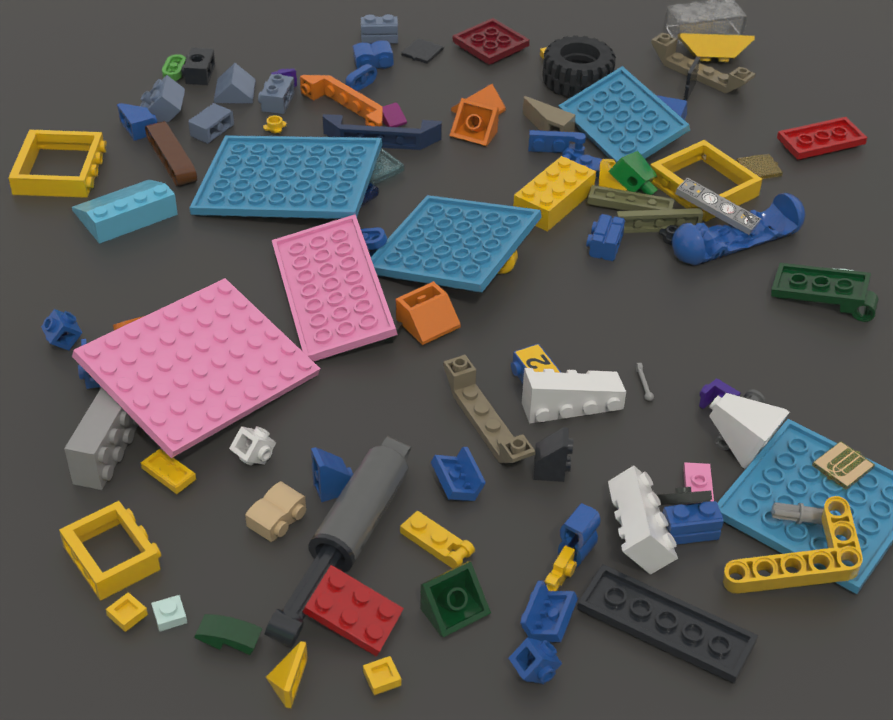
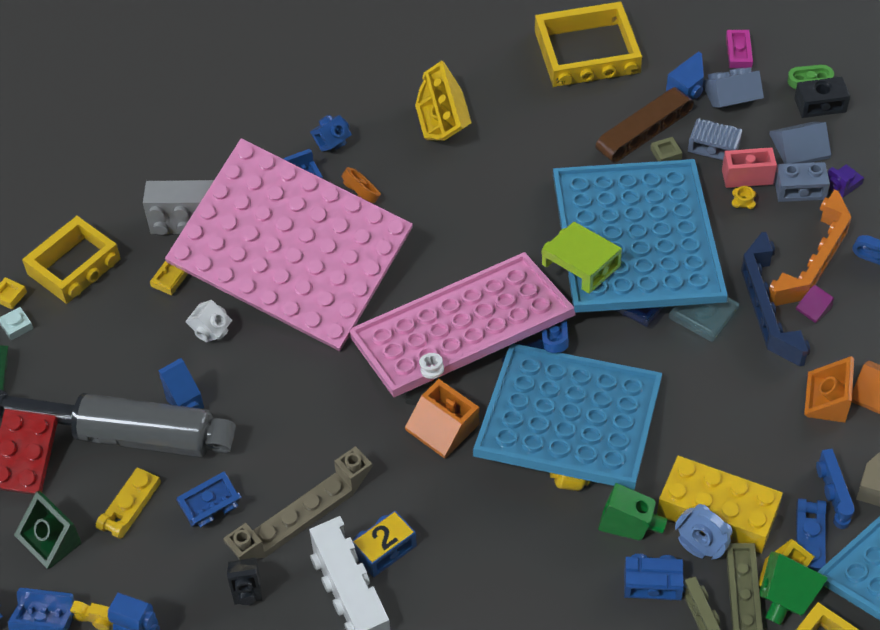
camera: 80 degrees right, 10 degrees up
(77, 254) = (441, 104): none -> yellow wedge
(120, 92) = (739, 48): none -> dark pink plate
(127, 210) = (536, 120): medium azure slope -> none
(205, 149) = (666, 150): none -> olive plate
(252, 110) = (749, 167): none -> coral brick
(276, 511) = (135, 364): tan brick -> none
(309, 192) = (583, 255): none -> lime panel
(383, 297) = (429, 360): none -> white bush
(551, 228) = (630, 514): none -> green torso
(573, 207) = (716, 530): none -> medium blue plate

